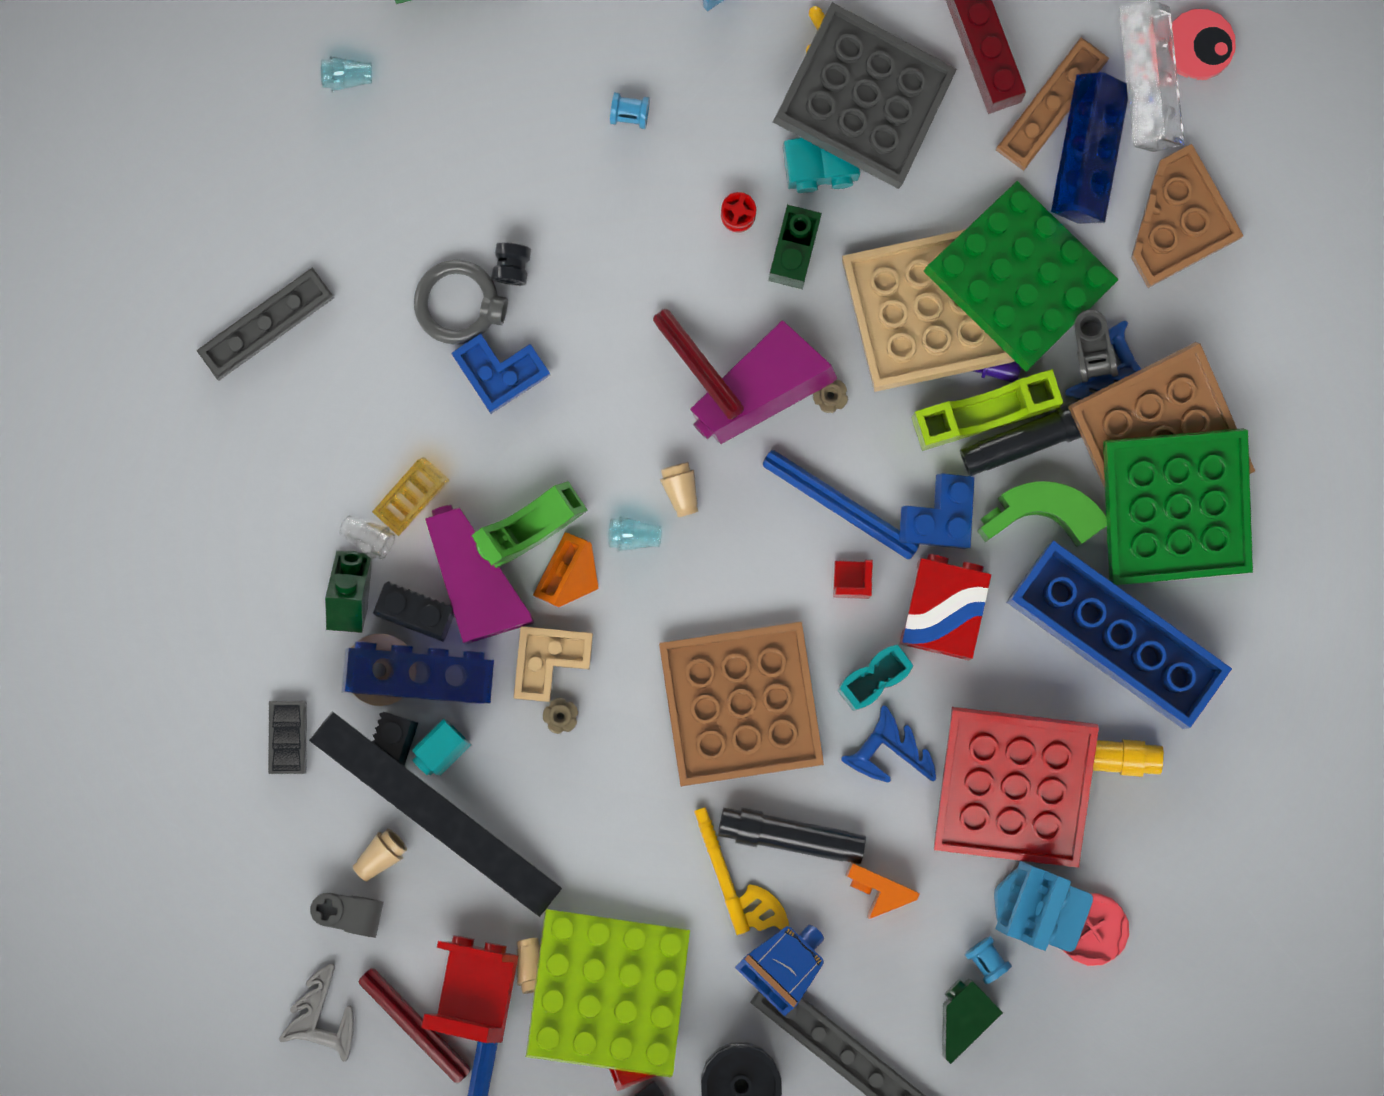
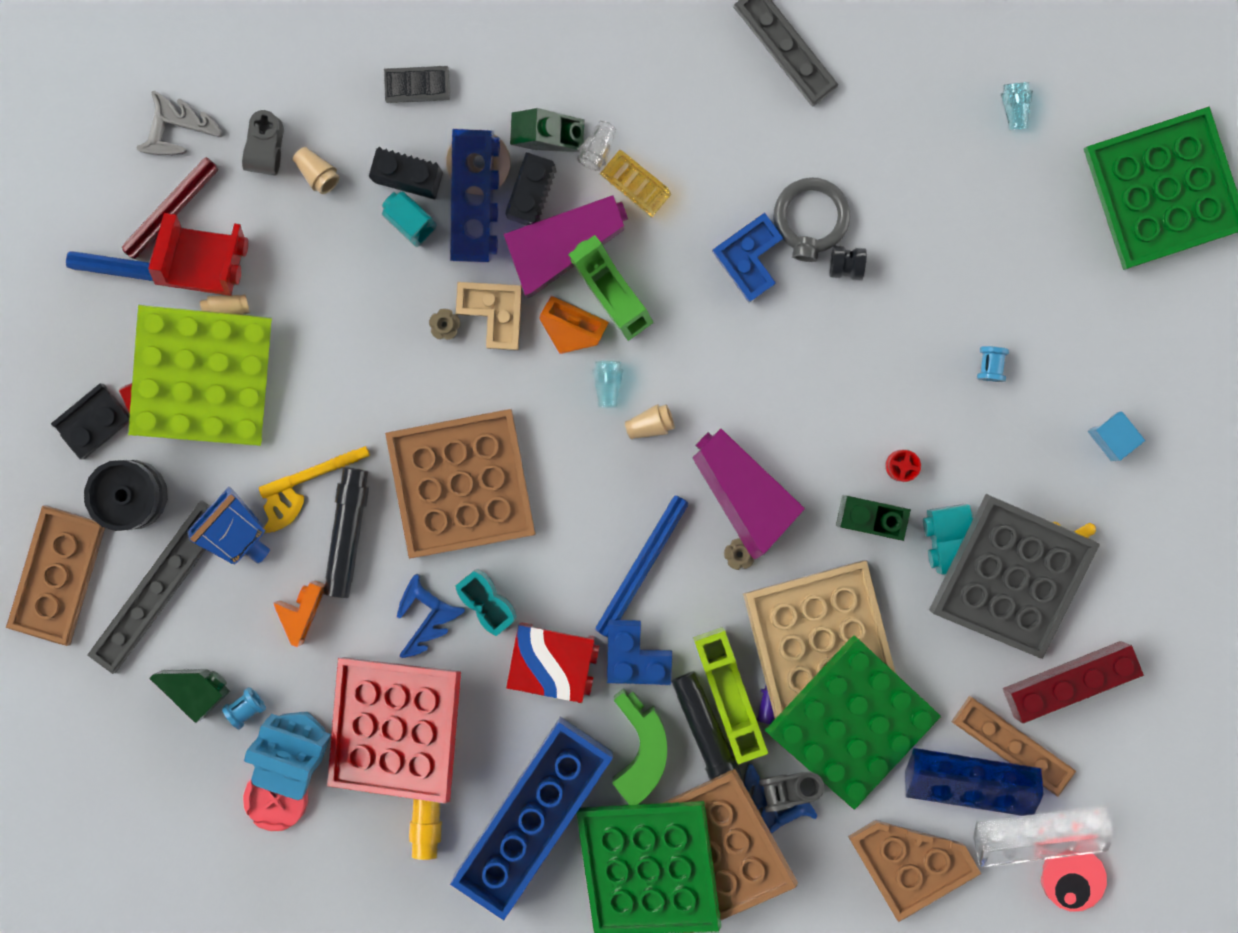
camera: 90 degrees right, 5 degrees up
(435, 813) = (350, 214): black tile -> none
(698, 364) = (761, 434): dark red axle -> none
(853, 579) = (574, 579): red panel -> none

